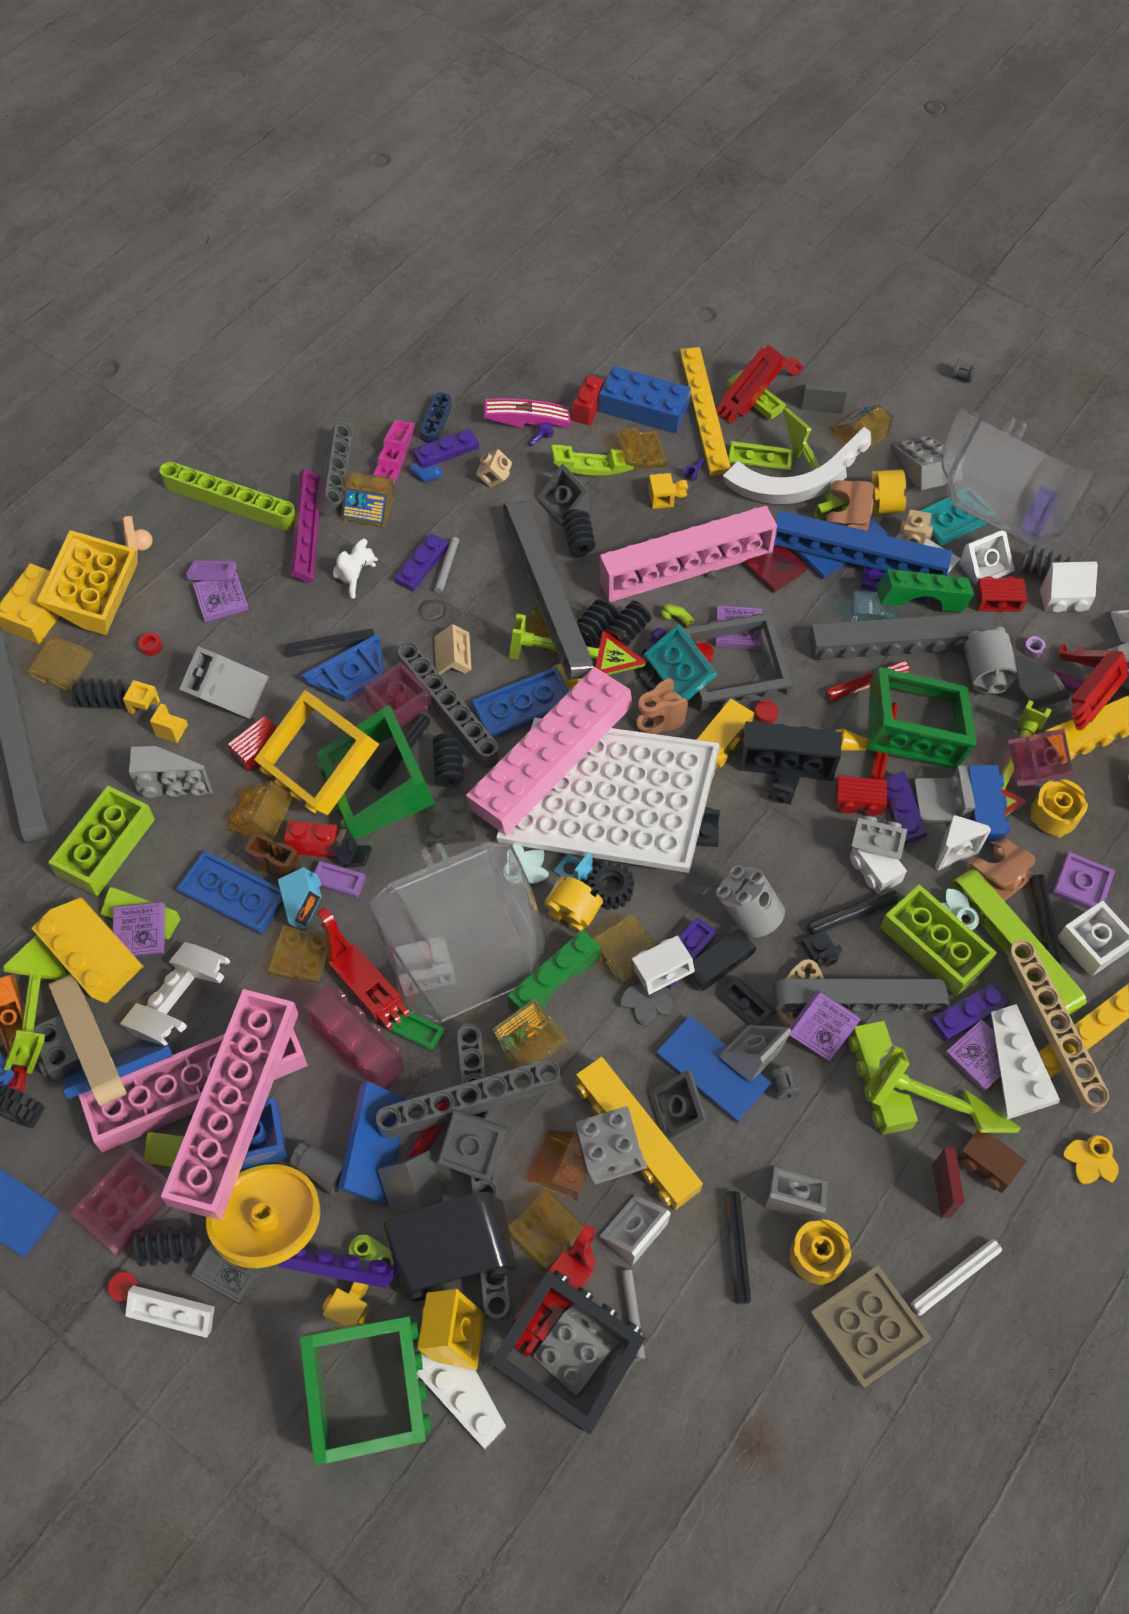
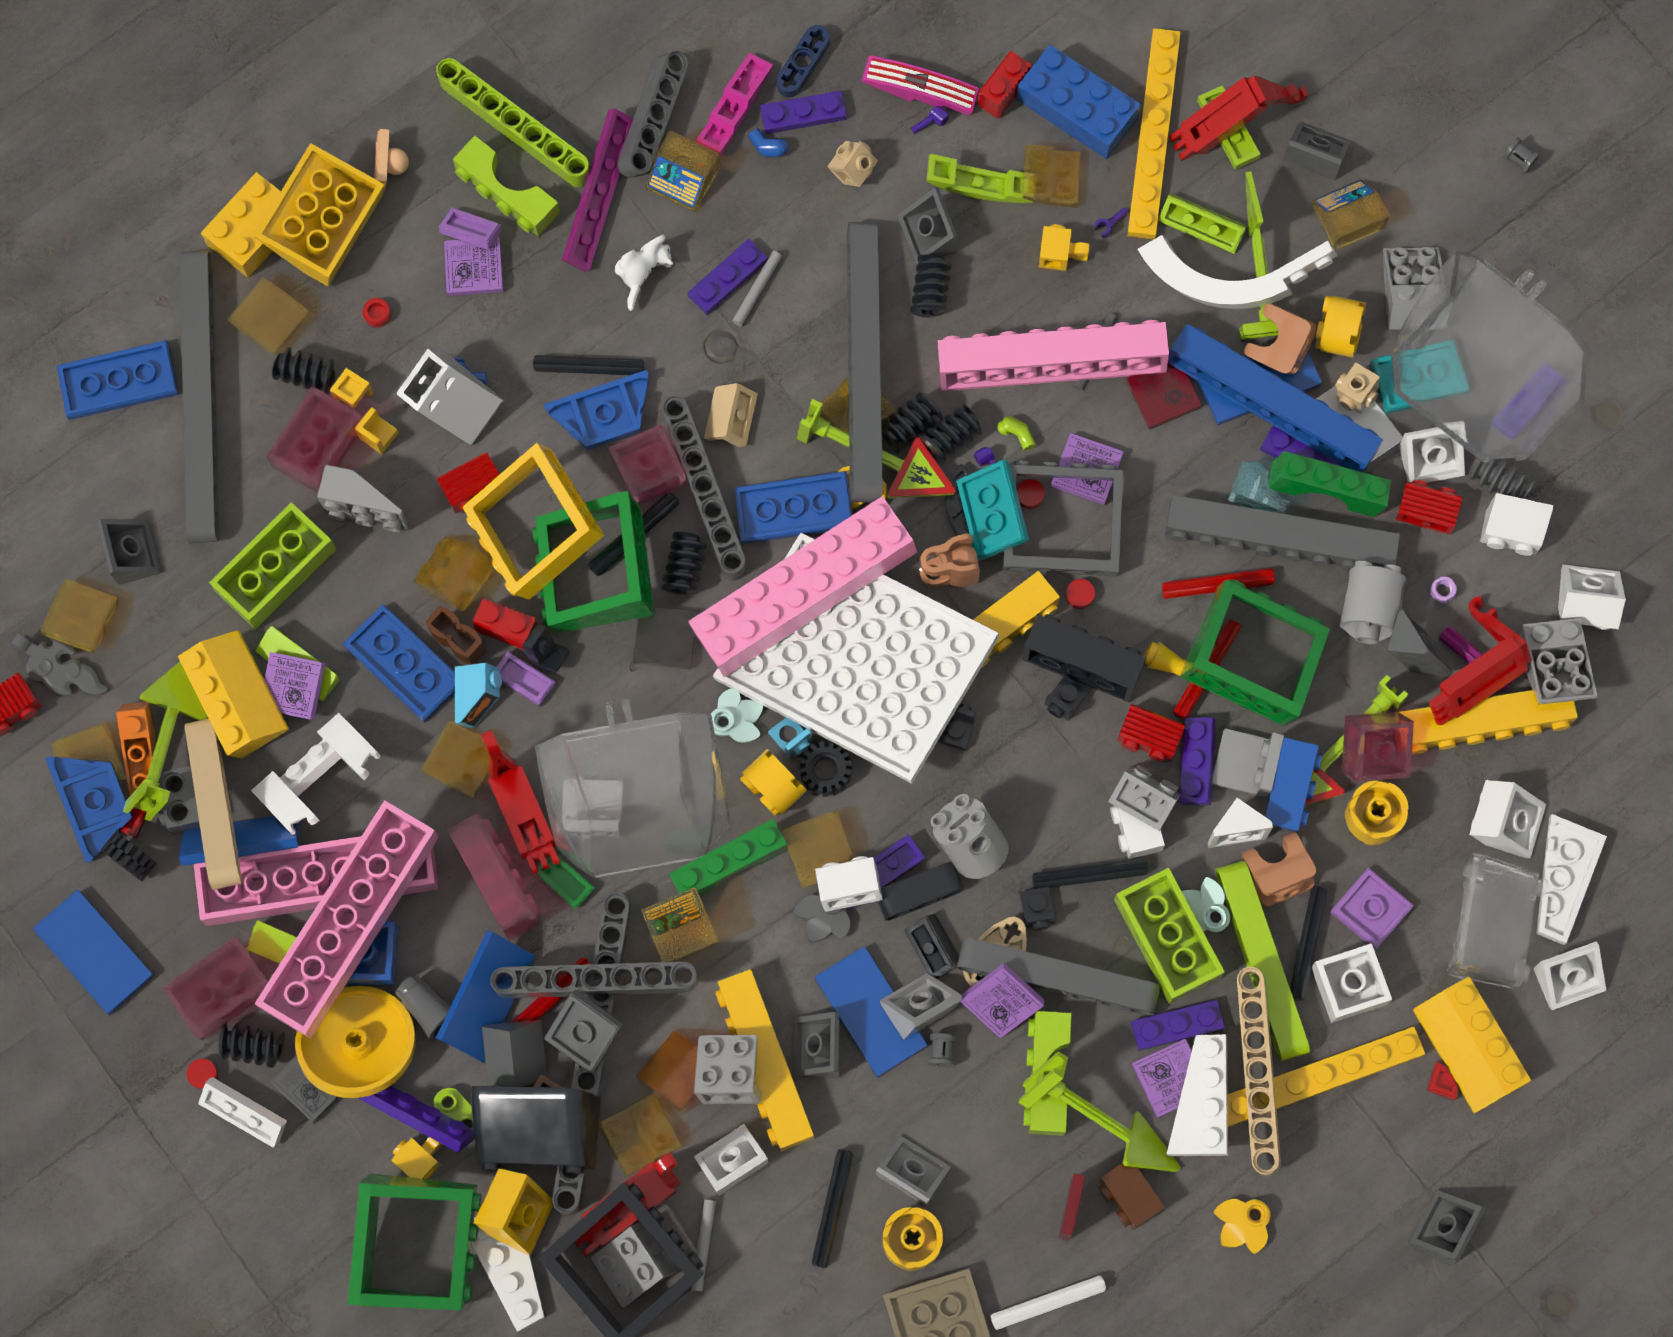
camera: 20 degrees right, 15 degrees up
(113, 735) = (313, 438): none -> clear pink brick
(256, 547) = (530, 207): none -> lime arch

